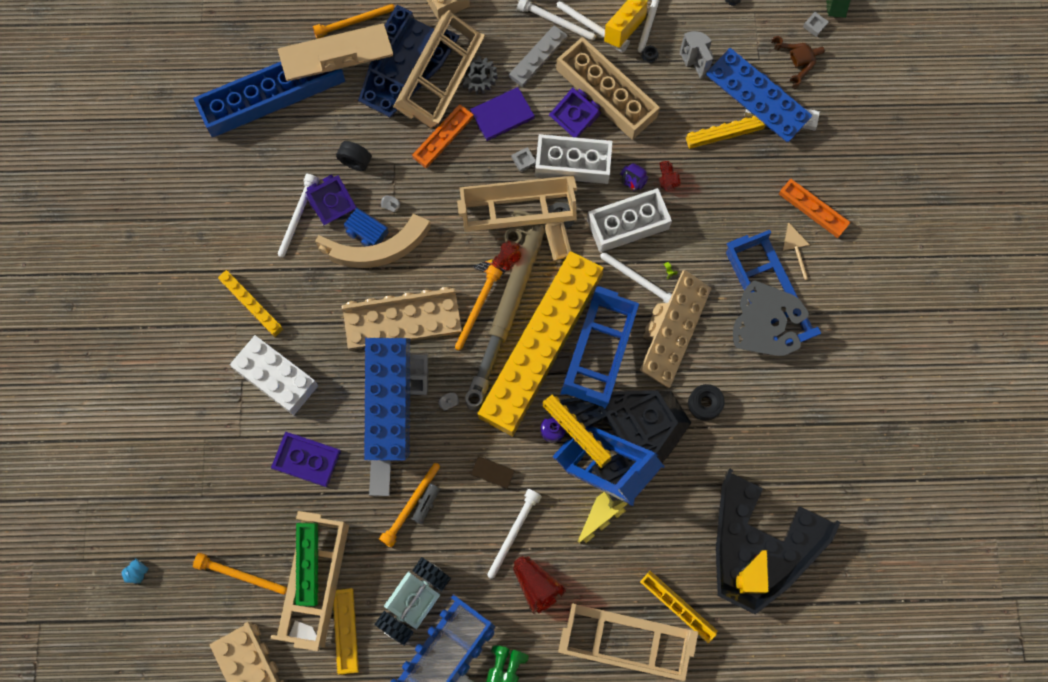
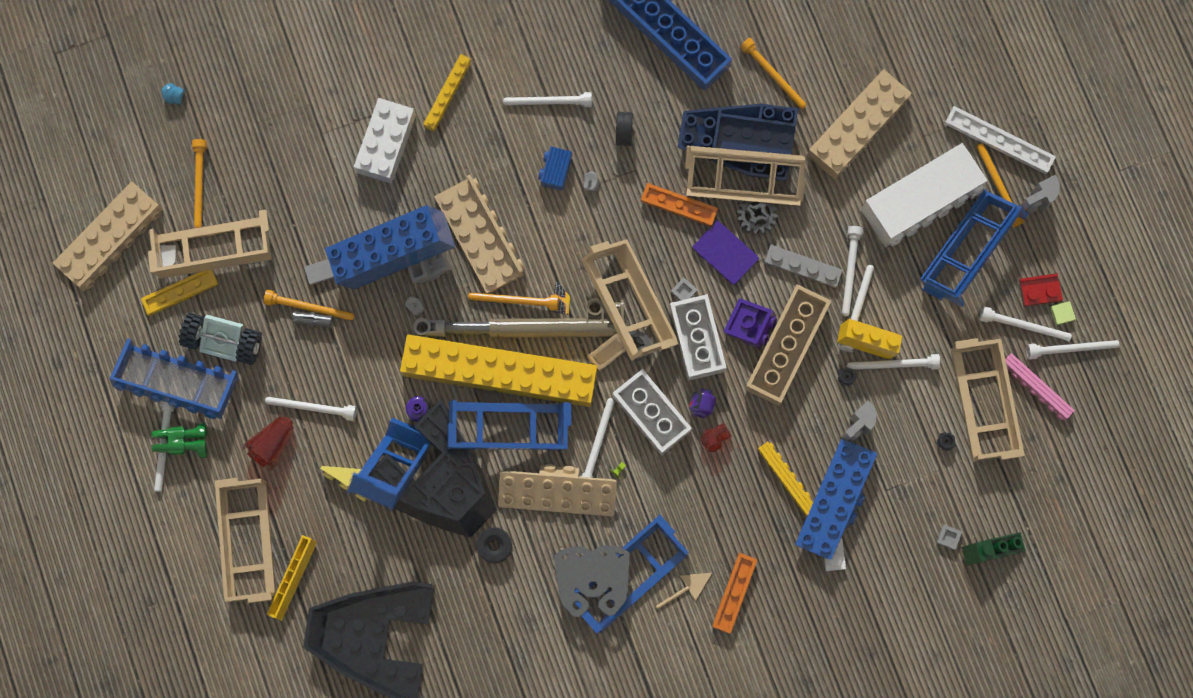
camera: 75 degrees right, 5 degrees up
(306, 459) = (319, 199): dark purple tile -> none
(306, 564) = (224, 235): green plate -> none
(329, 199) = (573, 123): dark purple plate -> none
(335, 52) = (720, 70): tan bracket -> none
(378, 254) = (553, 207): tan arch -> none
(492, 472) = (361, 369): dark brown tile -> none
(508, 255) = (571, 308): clear red plate -> none
(577, 430) = (416, 428): yellow piece -> none
(754, 576) = (338, 636): yellow slope -> none
(800, 55) = (903, 532): reddish brown piece -> none

